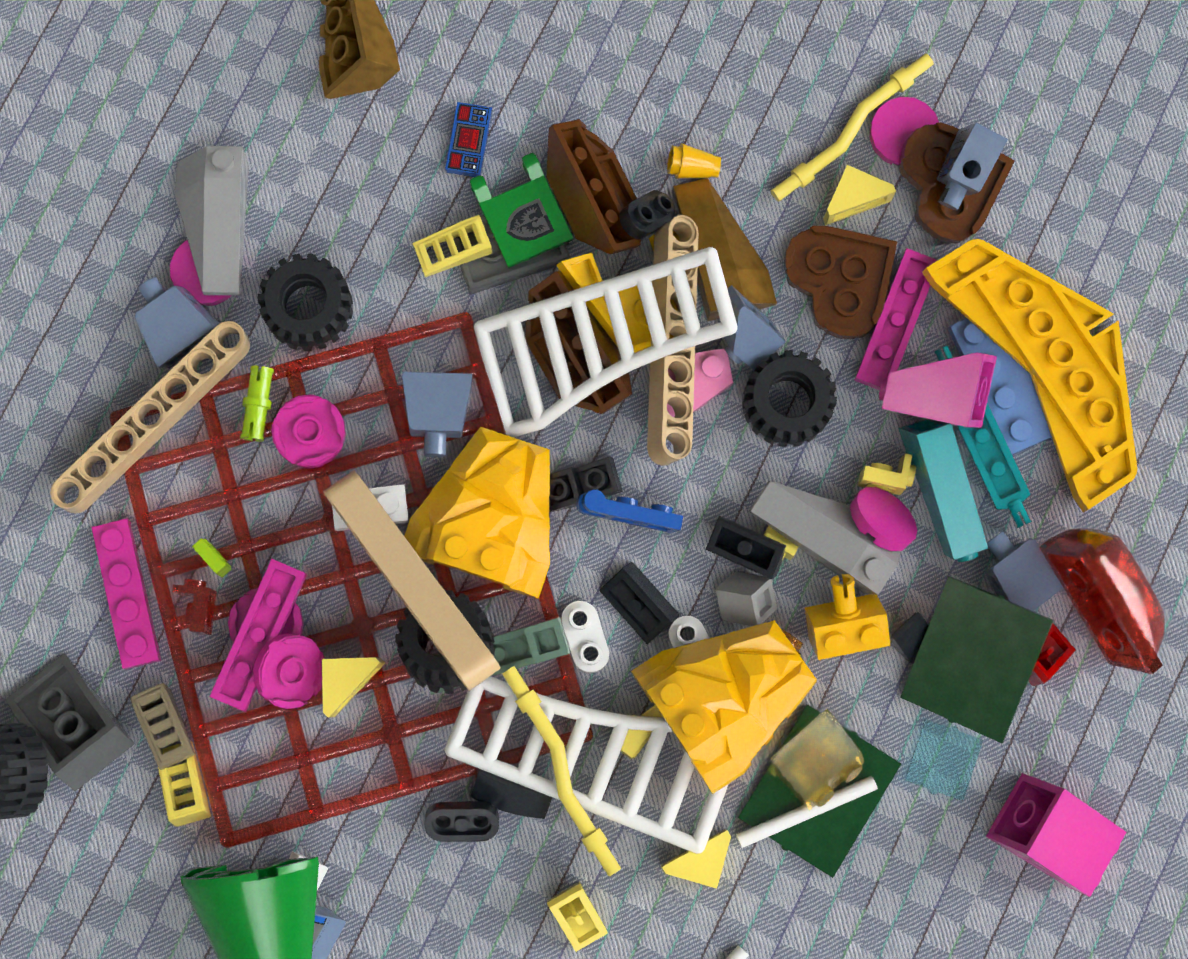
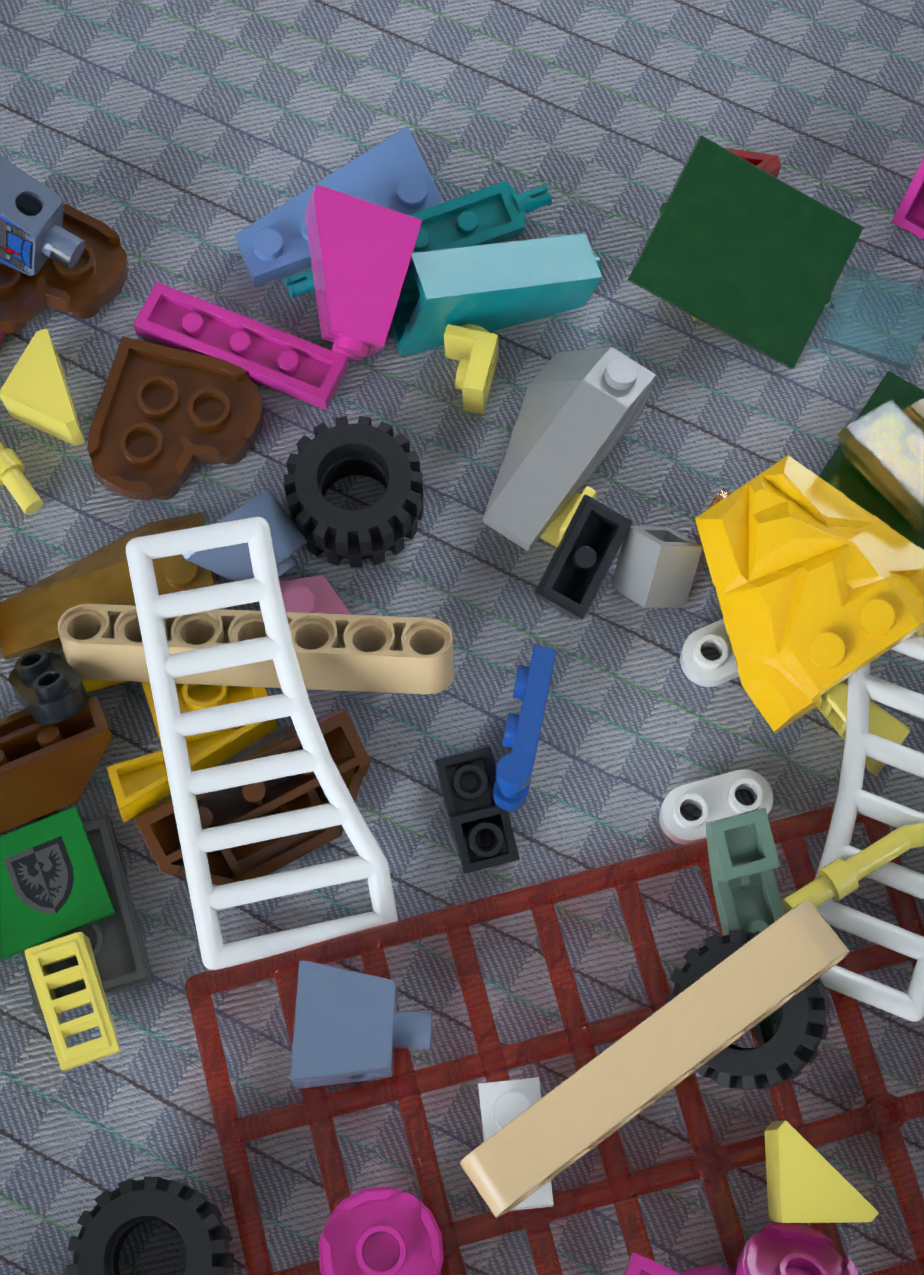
camera: 85 degrees left, 10 degrees down
(490, 514) = (527, 946): yellow wedge -> none
(639, 602) = (661, 725): black slope -> none
(847, 623) = (695, 423): yellow brick -> none
(883, 518) = (540, 369): dark pink tile -> none
(909, 637) = (710, 346): black slope -> none
(1021, 572) = (617, 195): sand blue torso -> none
(1073, 373) = (325, 121): yellow wing -> none
(1109, 596) = (658, 80): clear red windscreen -> none

